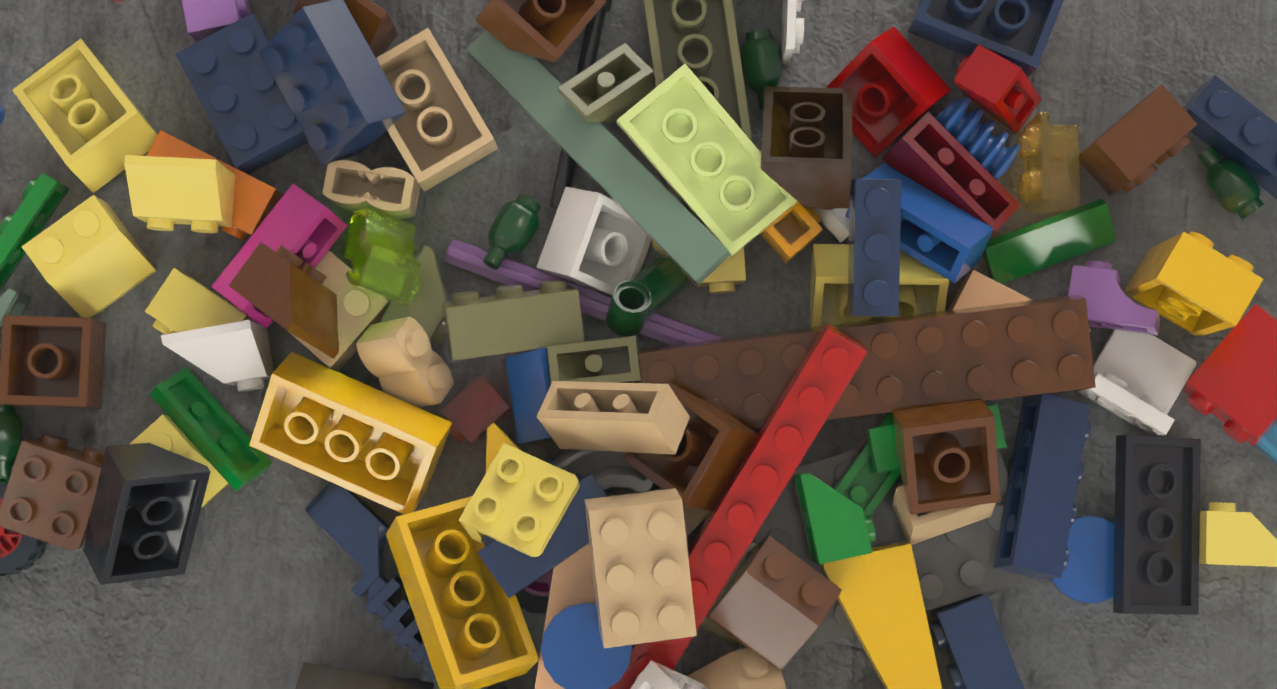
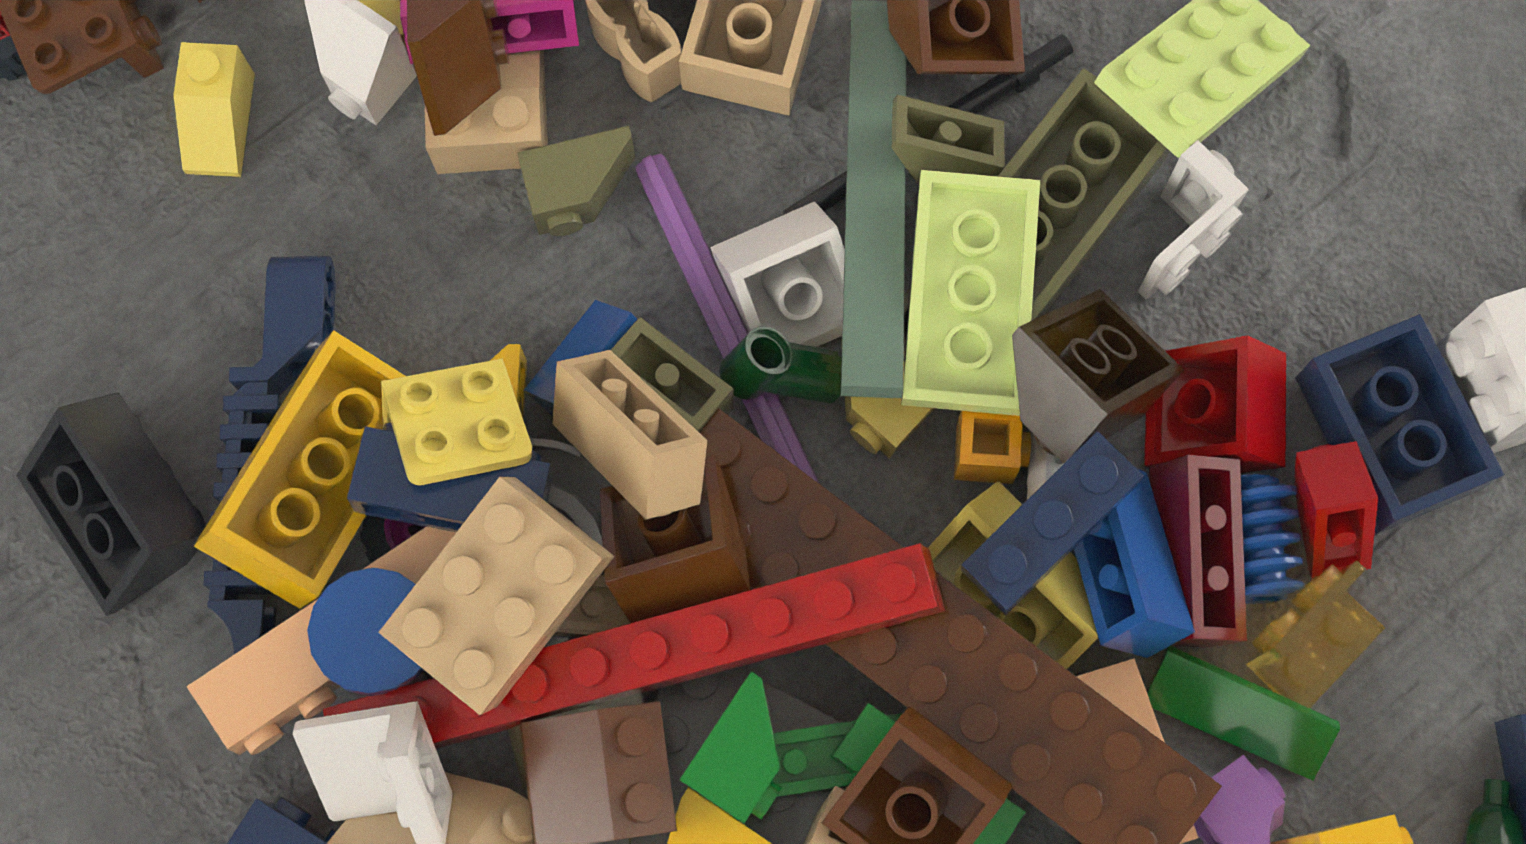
camera: 45 degrees right, 10 degrees down
(144, 513) = (127, 114): black slope -> none
(210, 428) = (269, 108): green plate -> none
(349, 433) = (381, 225): yellow brick -> none
(382, 255) = (579, 96): clear neon green brick -> none
(404, 362) = (497, 211): tan brick -> none
(475, 411) = (517, 317): clear red brick -> none
(512, 230) = (724, 195): dark green plant -> none
(512, 320) = (634, 265): olive brick -> none
(761, 62) = (1122, 265): dark green plant -> none
(1143, 135) = (1432, 694): reddish brown brick -> none

